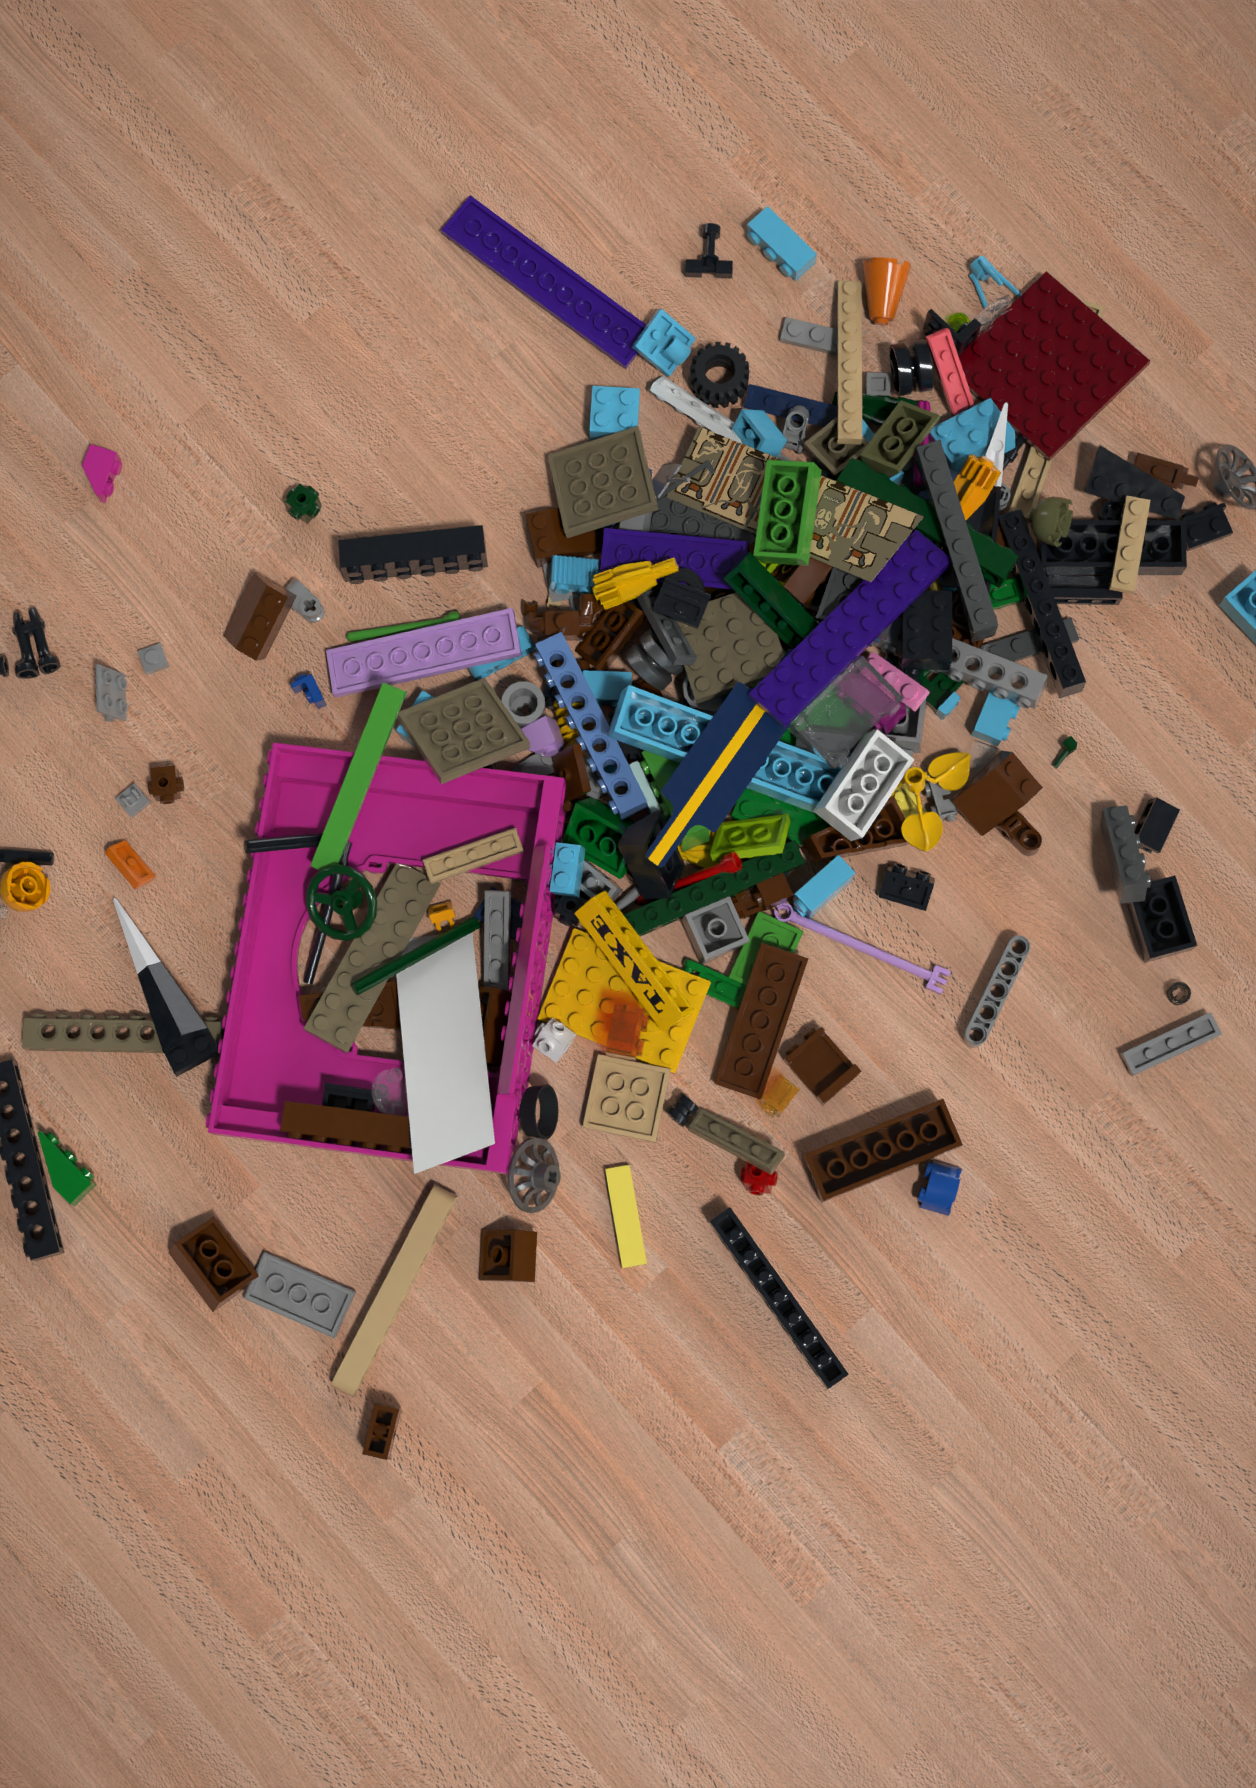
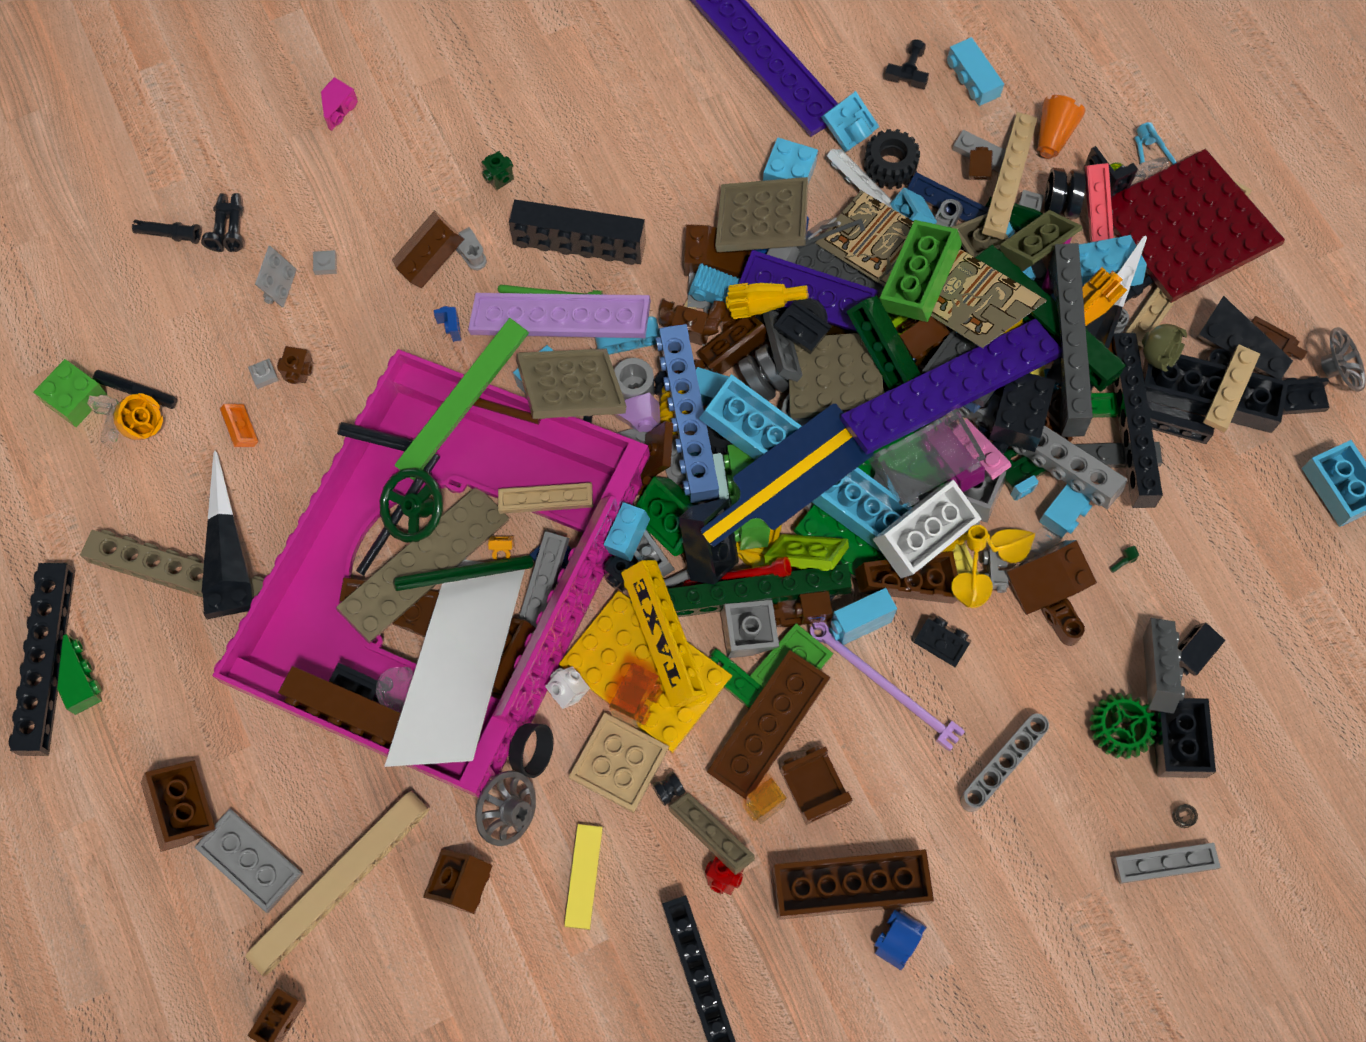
camera: 15 degrees right, 10 degrees down
(404, 776) = (506, 410): none -> reddish brown bar
(815, 355) = (981, 164): none -> reddish brown brick
(1093, 915) = (1116, 706): none -> green gear

